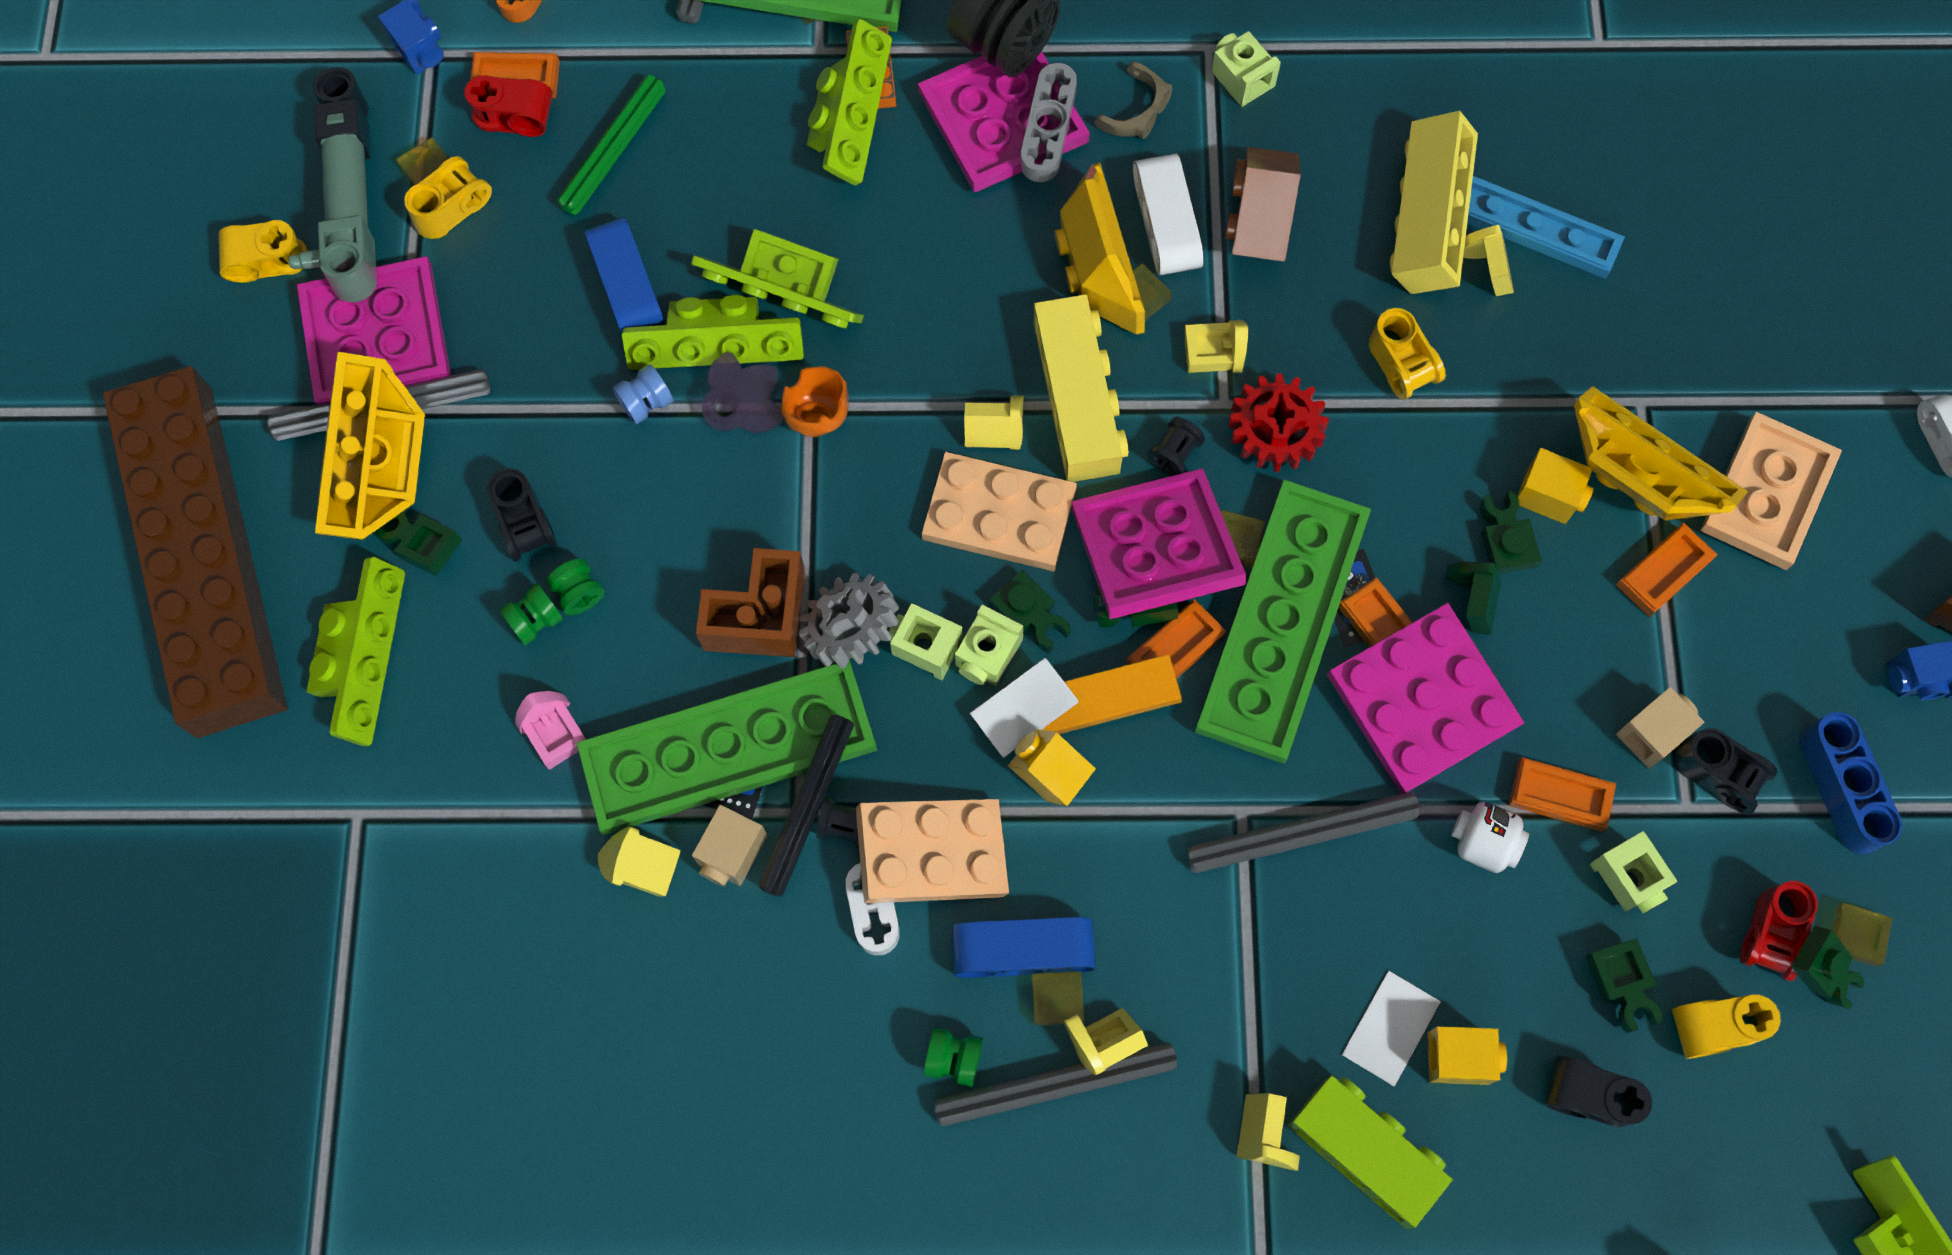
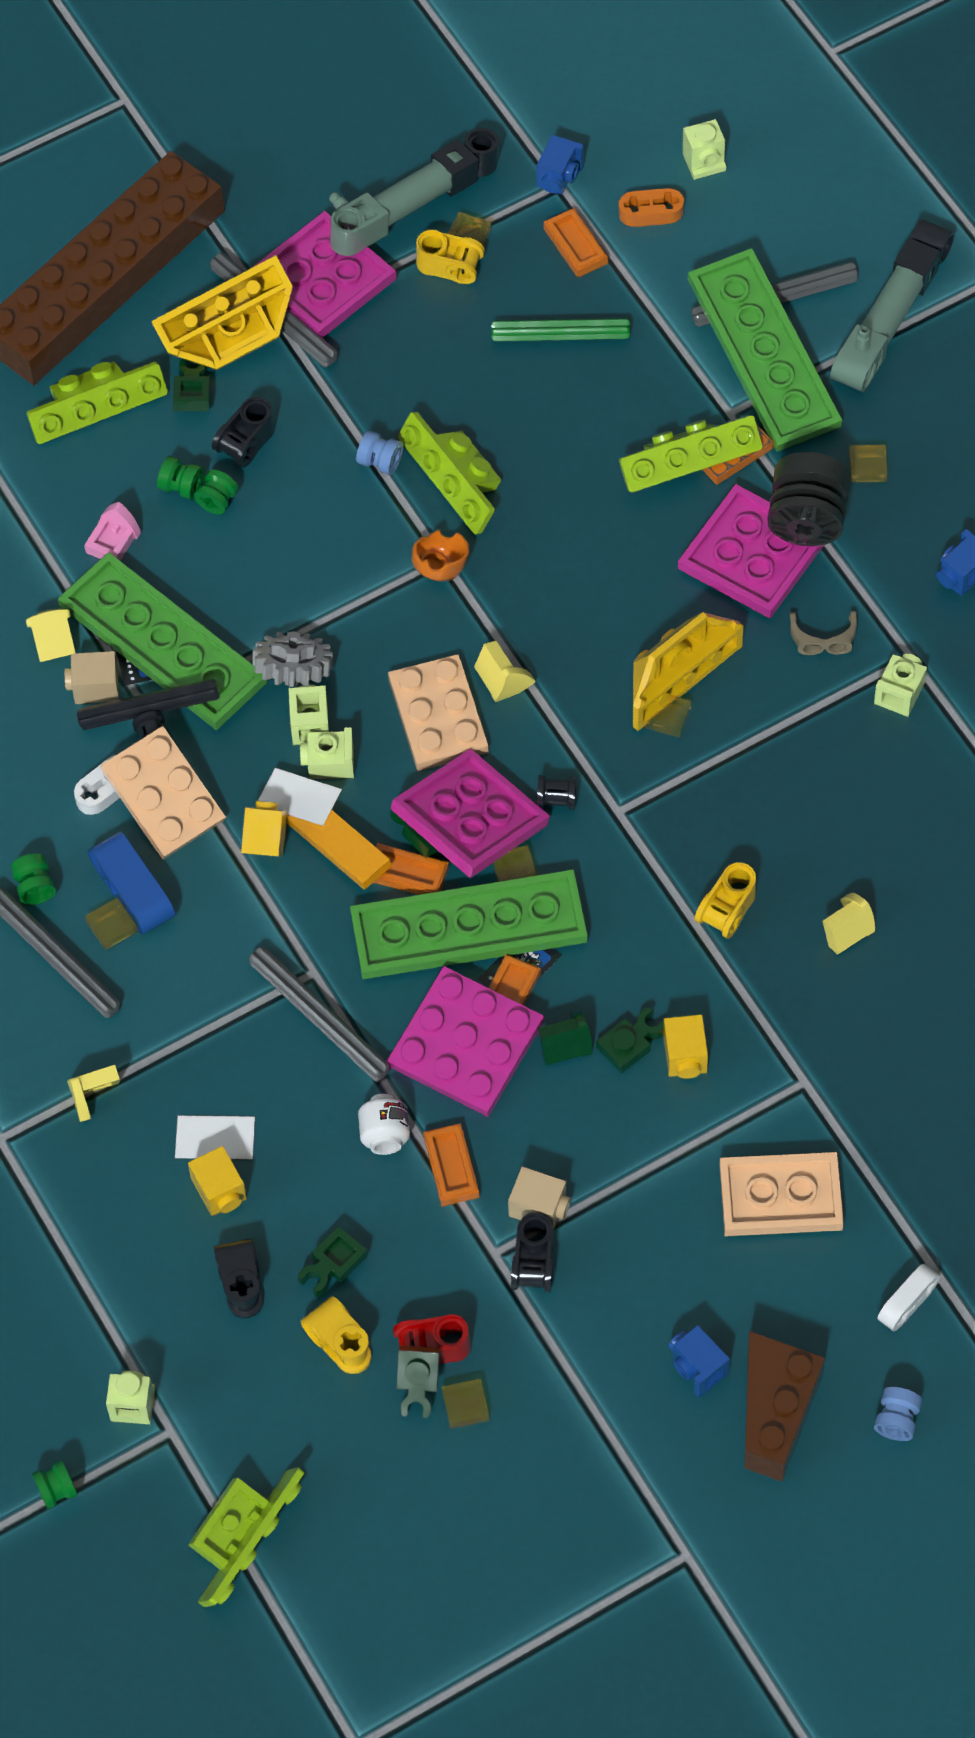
camera: 60 degrees right, 10 degrees down
(257, 250) = (334, 173): yellow piece -> none
(515, 105) = (545, 251): red piece -> none
(623, 275) = (461, 392): blue beam -> none
(747, 393) = (425, 510): clear purple plate -> none
(756, 620) = (264, 606): dark orange brick -> none
(784, 270) = (527, 486): lime bracket -> none
(1029, 606) = (375, 765): dark green plate -> none
(1042, 106) = (763, 565): light grey beam -> none
(1078, 388) = (560, 708): light yellow brick -> none
(1105, 1040) = (93, 959): light yellow tile -> none
(1168, 214) = (740, 695): white beam -> none
(1216, 346) = (656, 781): light yellow tile -> none
(1260, 430) = (619, 842): red gear -> none
(1268, 195) = (786, 742): brick -> none
(1371, 1151) = (117, 1154): lime brick -> none
(1434, 203) = (865, 858): light yellow brick -> none
(1544, 228) = (904, 941): dark azure tile -> none
(1642, 860) = (414, 1217): yellowish green brick -> none
(1648, 464) = (733, 1084): yellow wedge -> none
(1666, 569) = (672, 1156): orange tile -> none
(1845, 806) = (577, 1324): blue beam -> none

